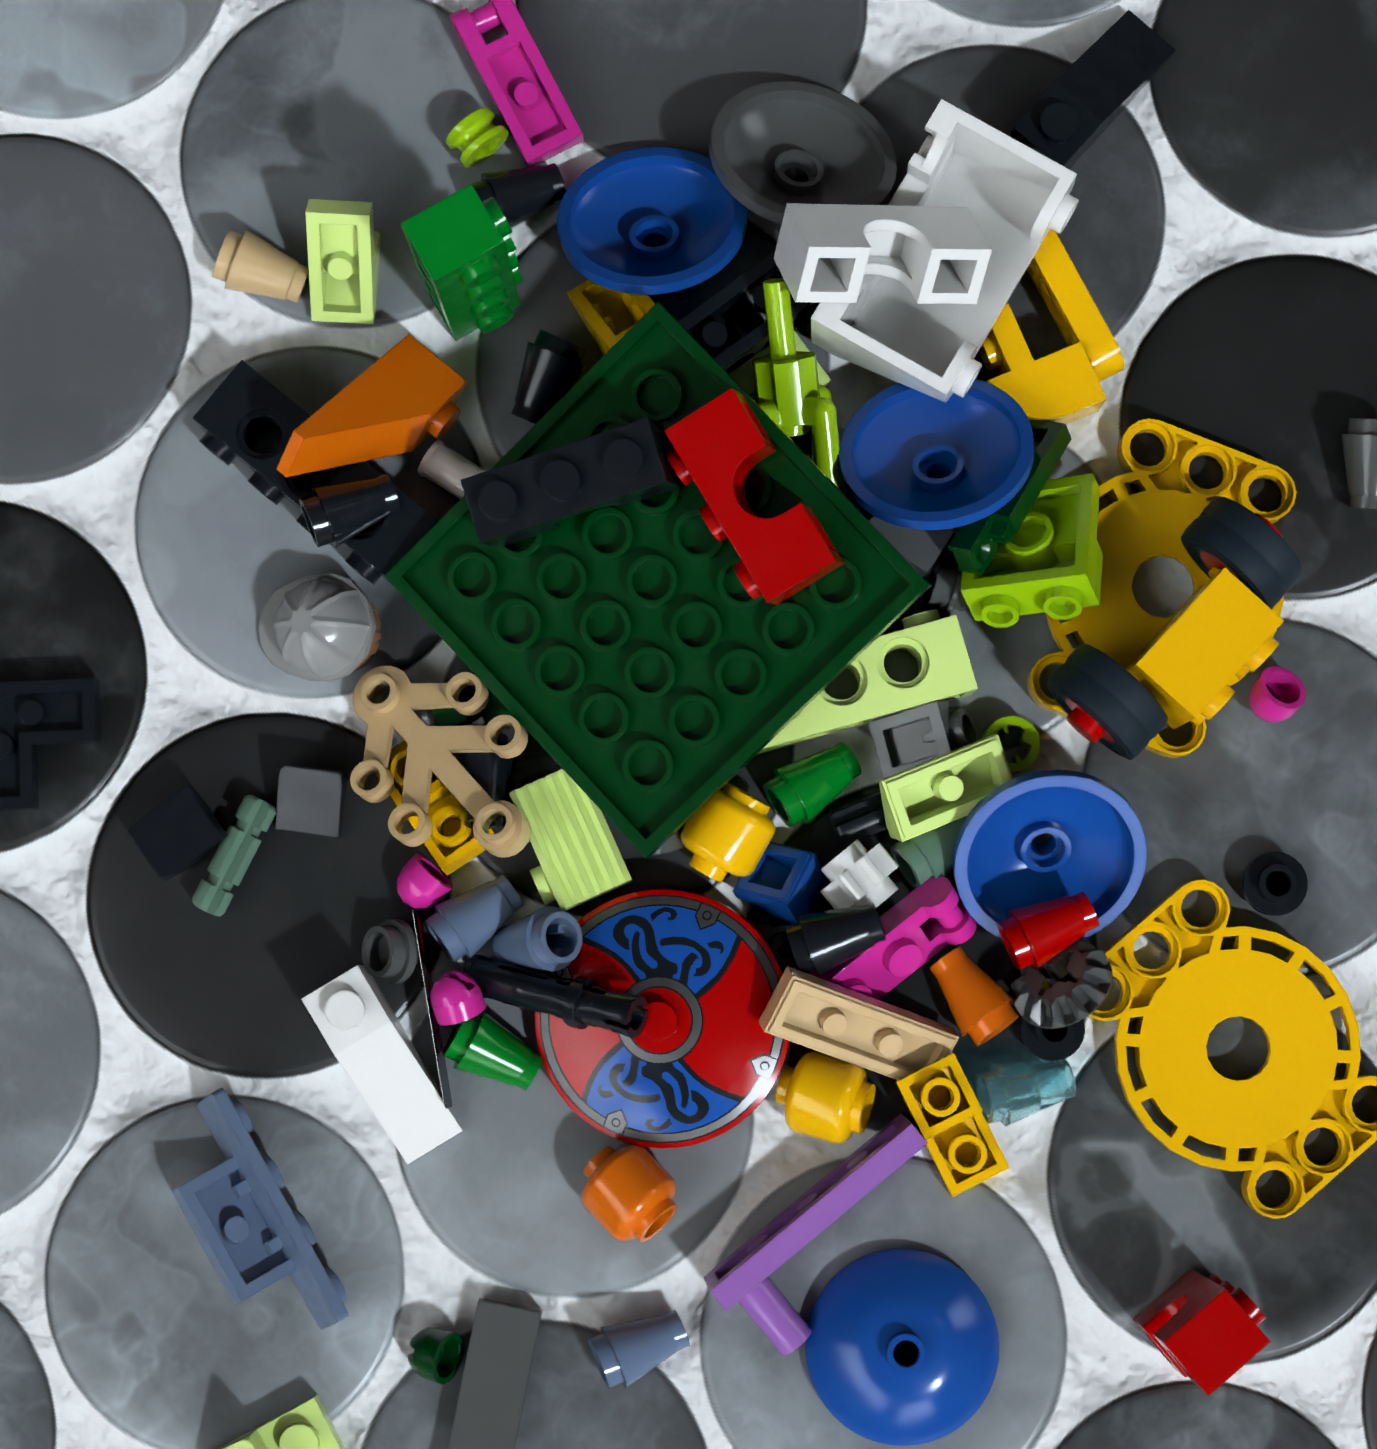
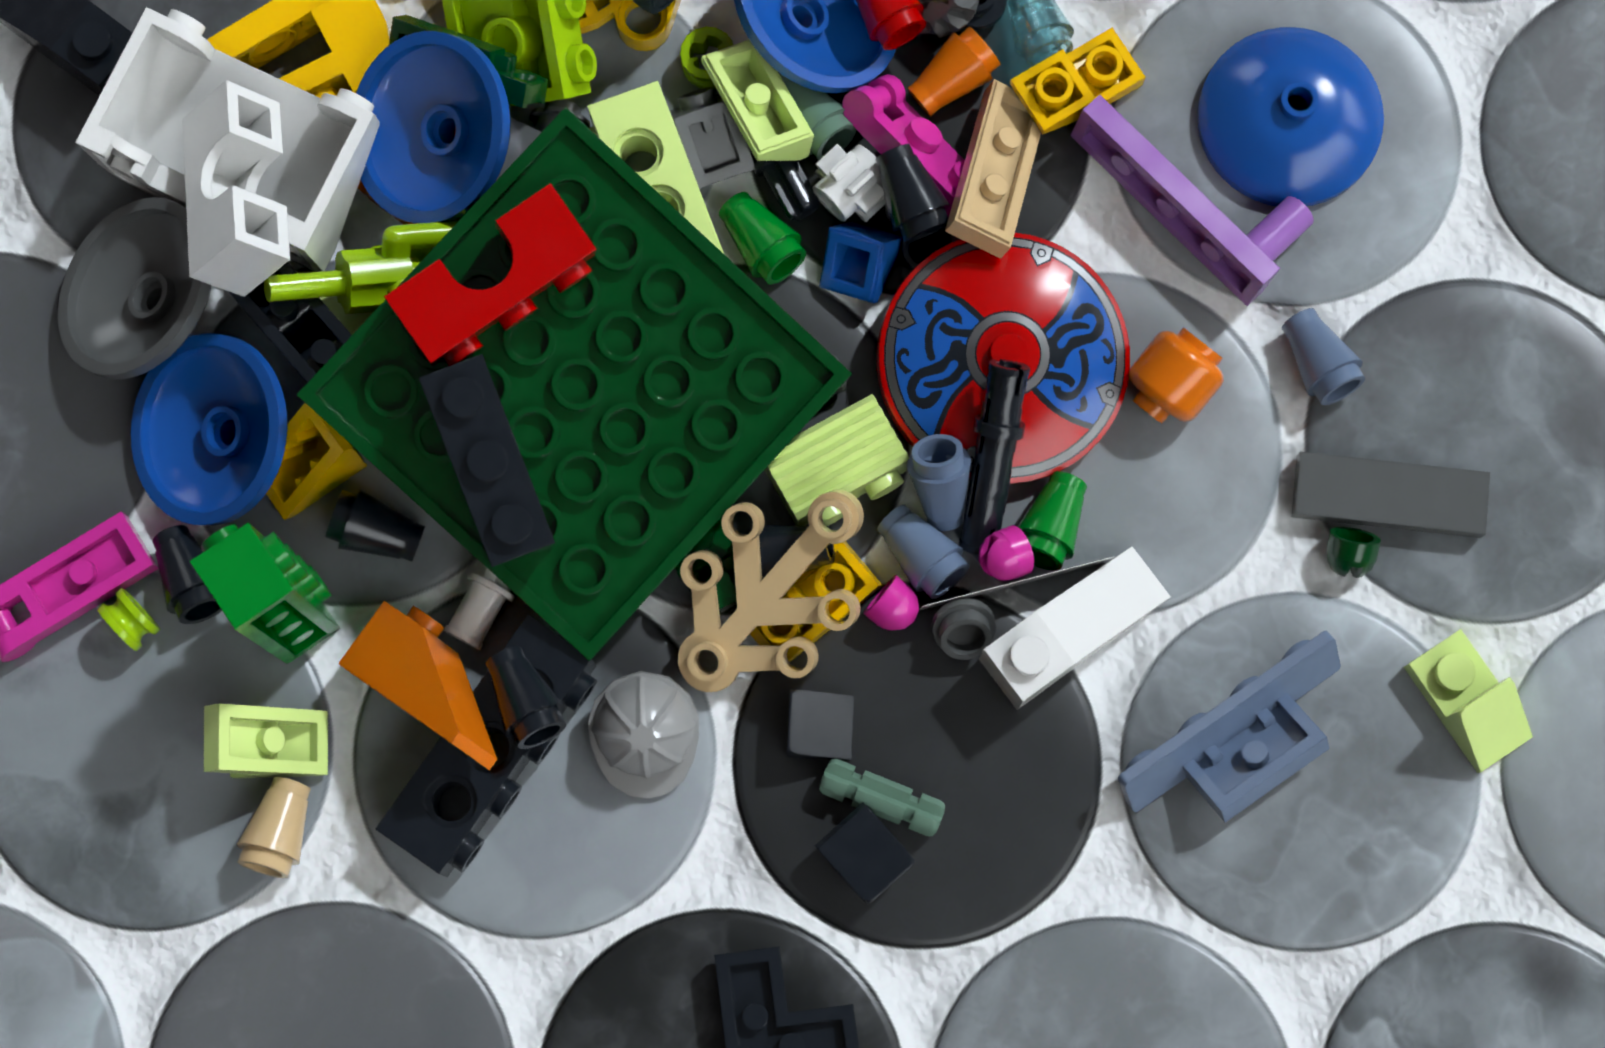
camera: 95 degrees left, 5 degrees down
(728, 834) = (822, 305): yellow head -> none
(825, 1097) = (1064, 198): yellow head -> none

